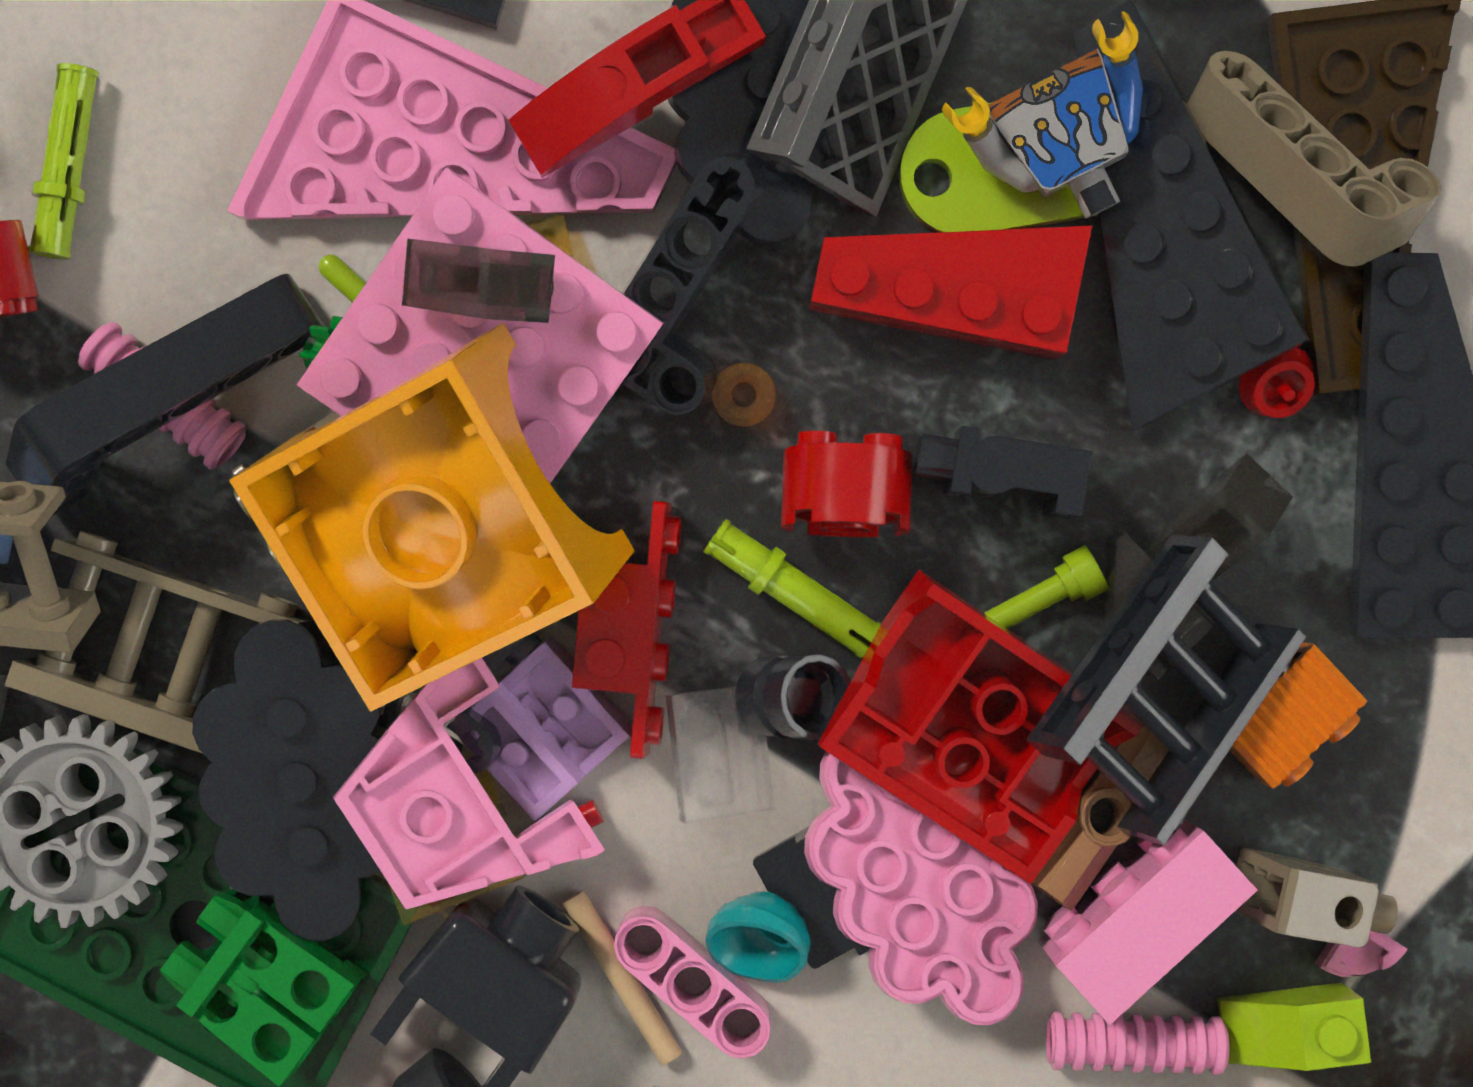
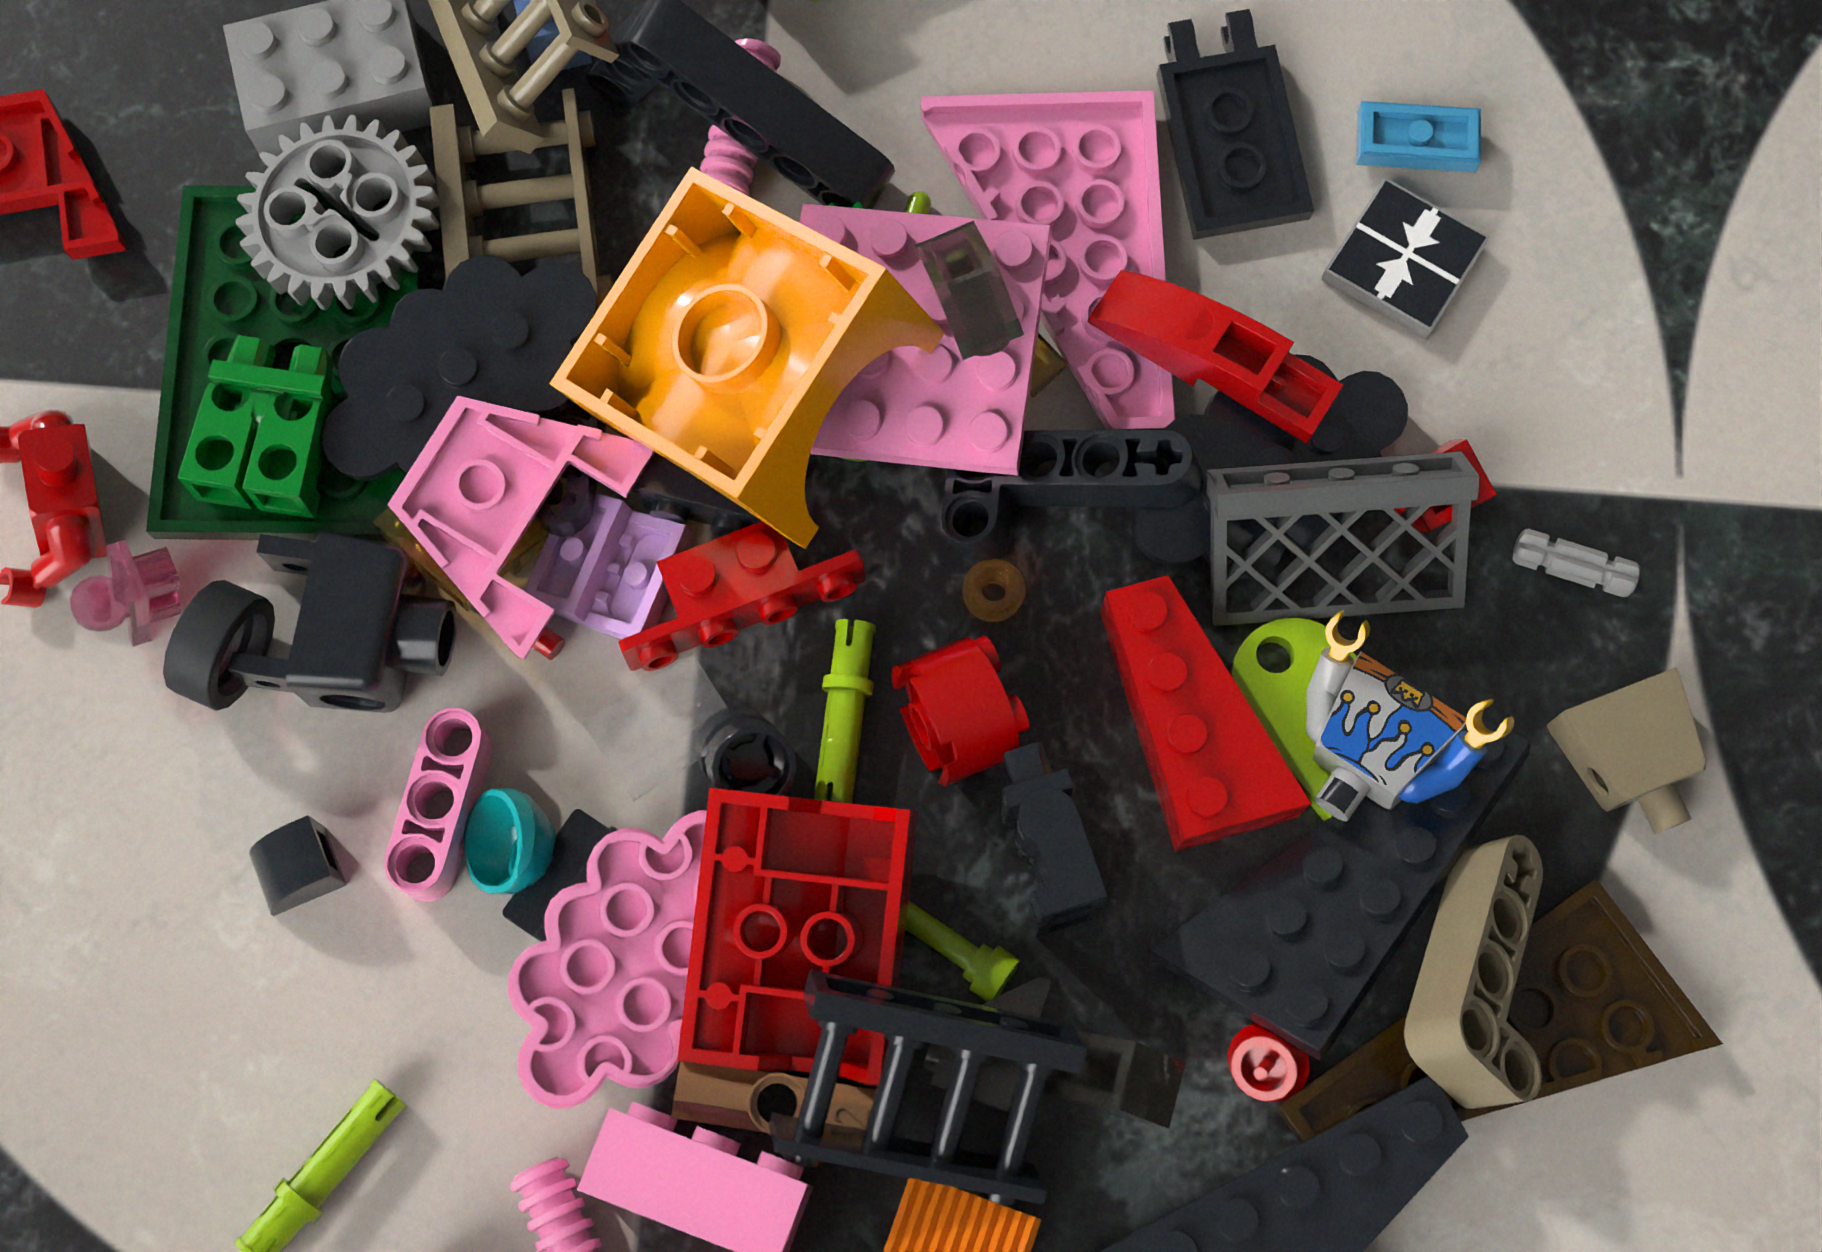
camera: 60 degrees right, 15 degrees down
(625, 984) = (400, 763): tan bar -> none

